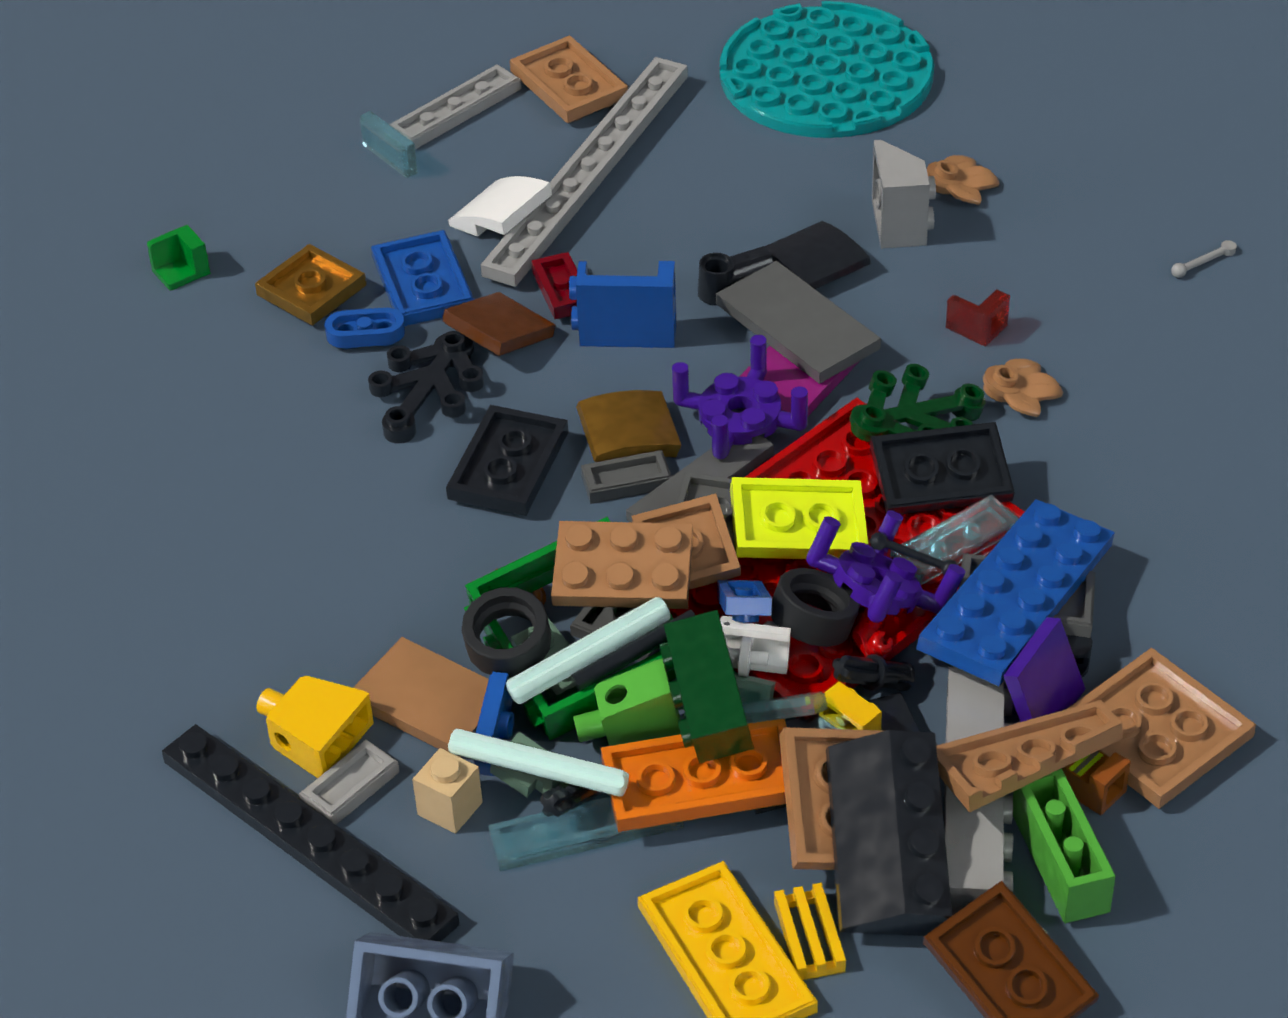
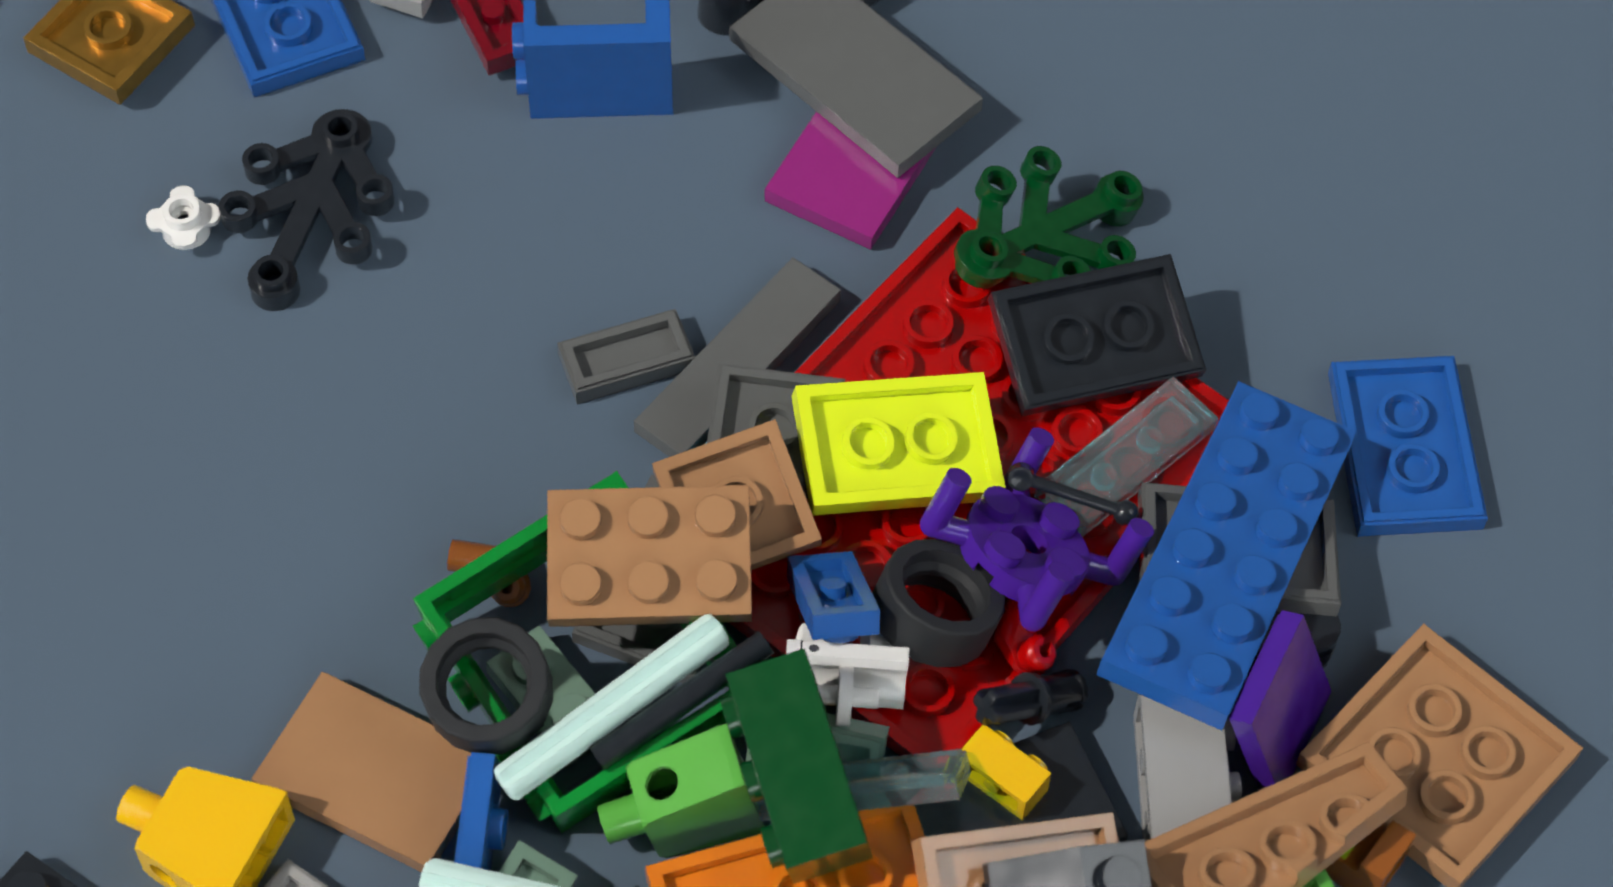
camera: 10 degrees left, 15 degrees up
(345, 388) = (185, 232): none -> white plate
(364, 328) = (202, 108): blue plate -> none
(498, 323) = (406, 92): reddish brown tile -> none
(507, 460) = (446, 340): black plate -> none
(628, 424) = (620, 266): pearl gold slope -> none
(731, 392) = (789, 203): dark purple plate -> none
(978, 322) = (1116, 49): clear red panel -> none
(1021, 385) = (1191, 162): medium nougat plate -> none
(1153, 552) = (1412, 446): none -> blue tile

